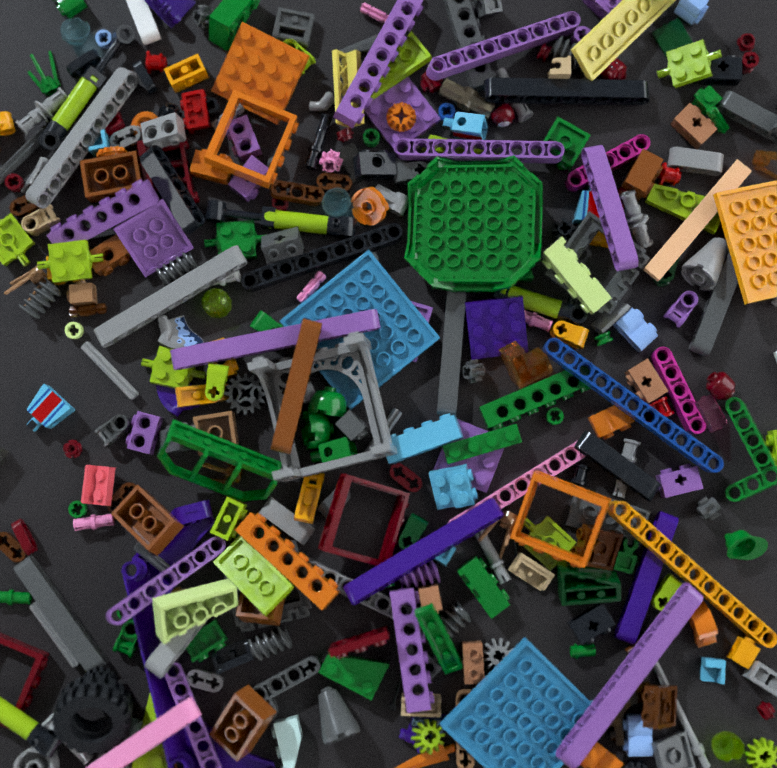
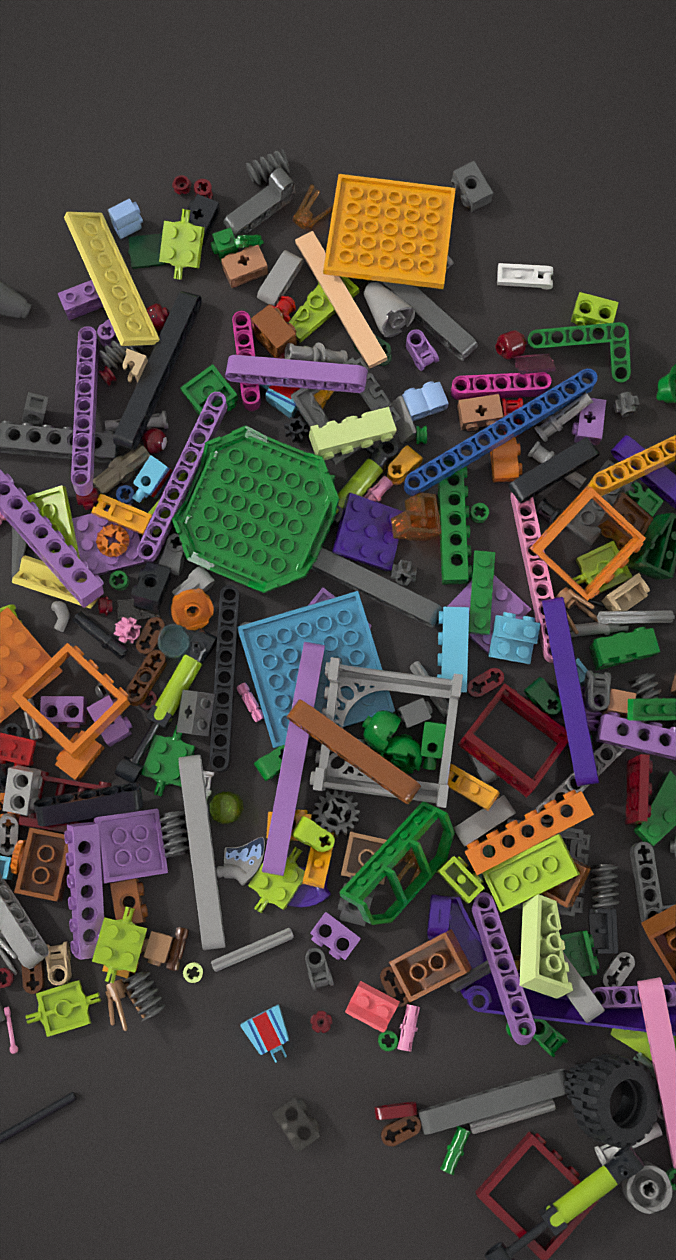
camera: 75 degrees left, 5 degrees down
(426, 114) = (122, 514): none -> light orange plate
(433, 574) = (597, 686): none -> dark grey piece
(514, 586) = (620, 617): none -> light grey axle
(664, 452) = (555, 422): none -> light grey pin

